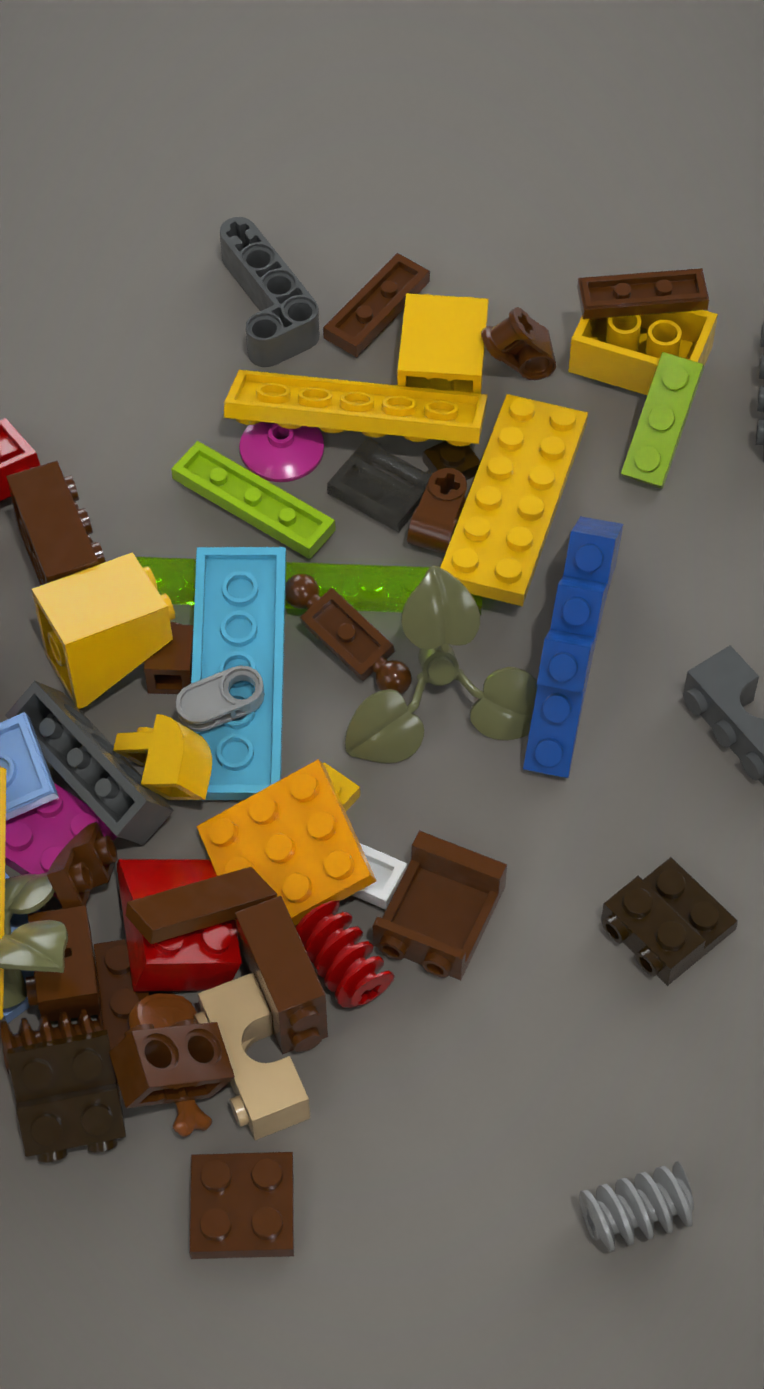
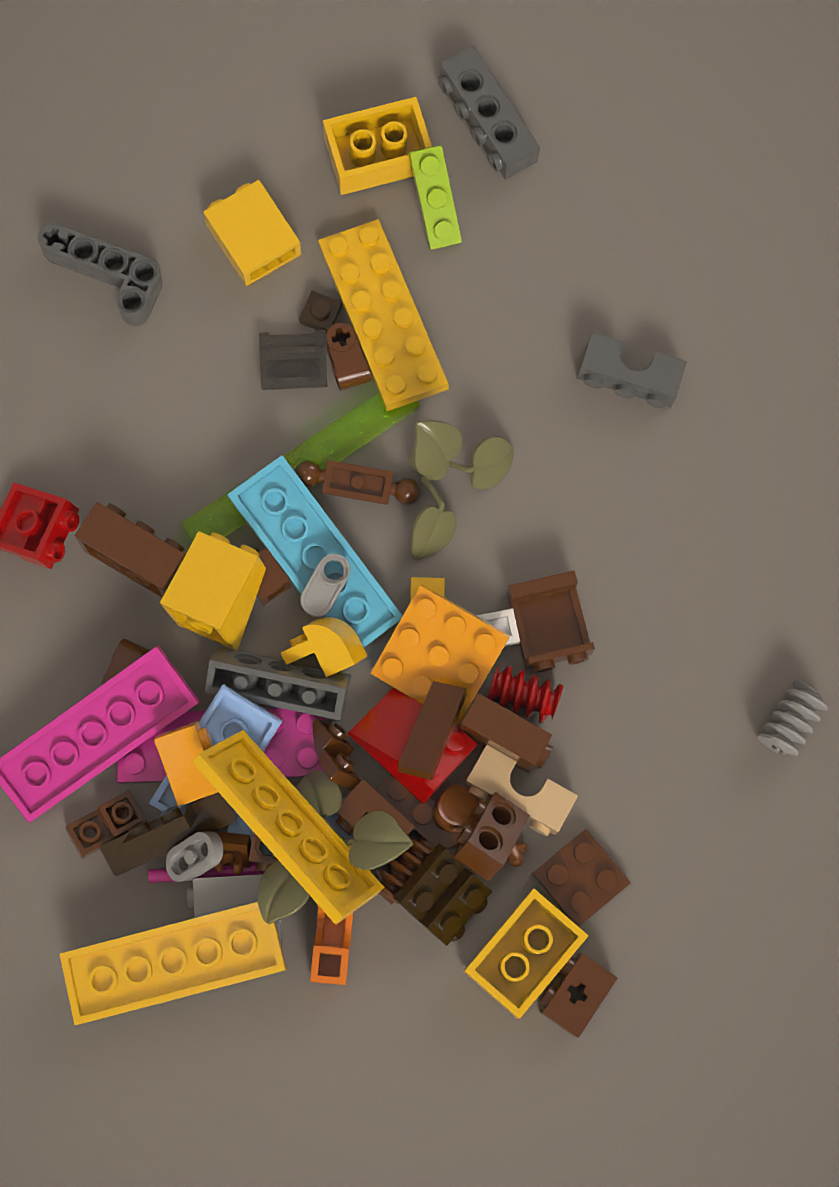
camera: 45 degrees left, 20 degrees up
(101, 1227) = (525, 953): none -> yellow brick
(151, 1328) = (595, 986): none -> reddish brown brick
(253, 499) = (221, 428): lime plate -> none
(282, 459) = (206, 389): dark pink dish -> none
(357, 407) = (235, 317): yellow plate -> none
(375, 305) = (182, 228): reddish brown plate -> none
(521, 345) = (304, 200): reddish brown piece -> none
(571, 645) = (500, 383): blue arch -> none
(642, 293) = (361, 113): reddish brown tile -> none
(666, 920) = (679, 534): dark brown plate -> none

